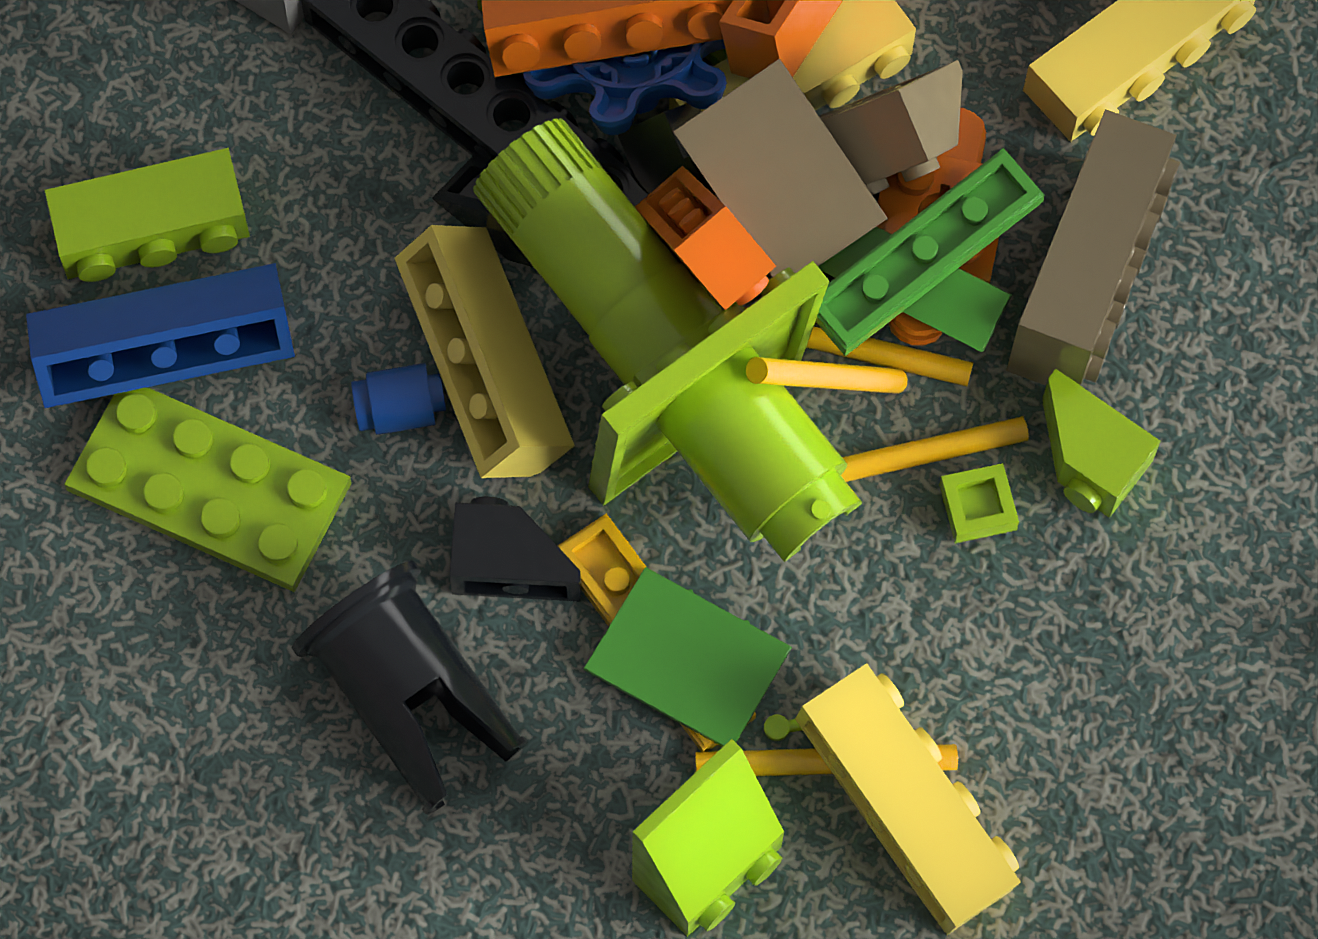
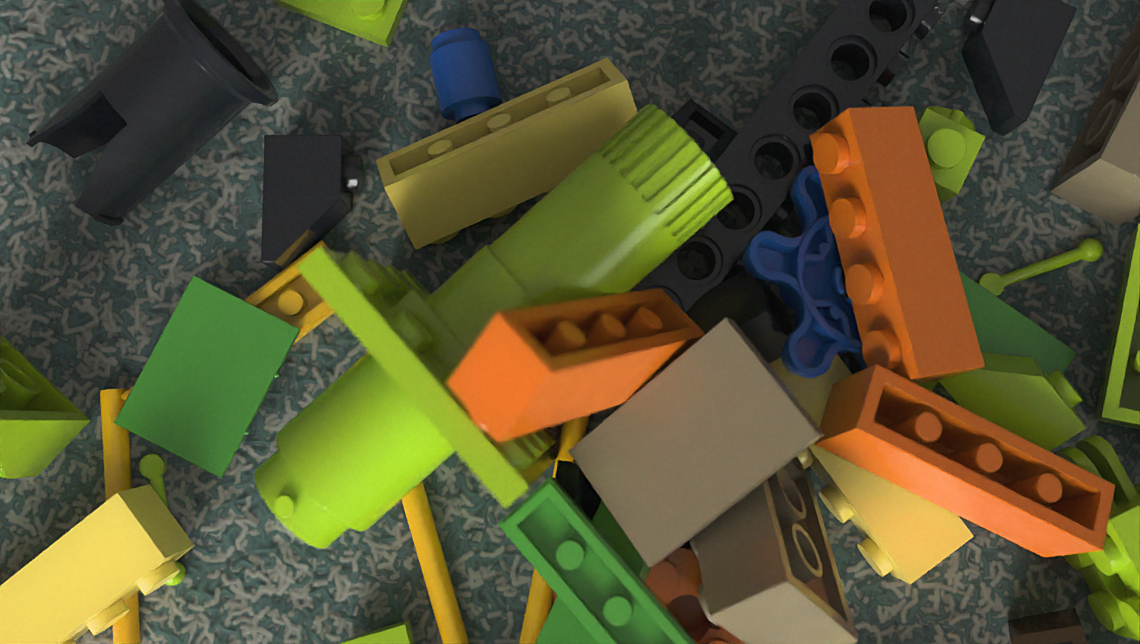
camera: 90 degrees right, 15 degrees up
(825, 375) = (468, 497): yellow bar -> none

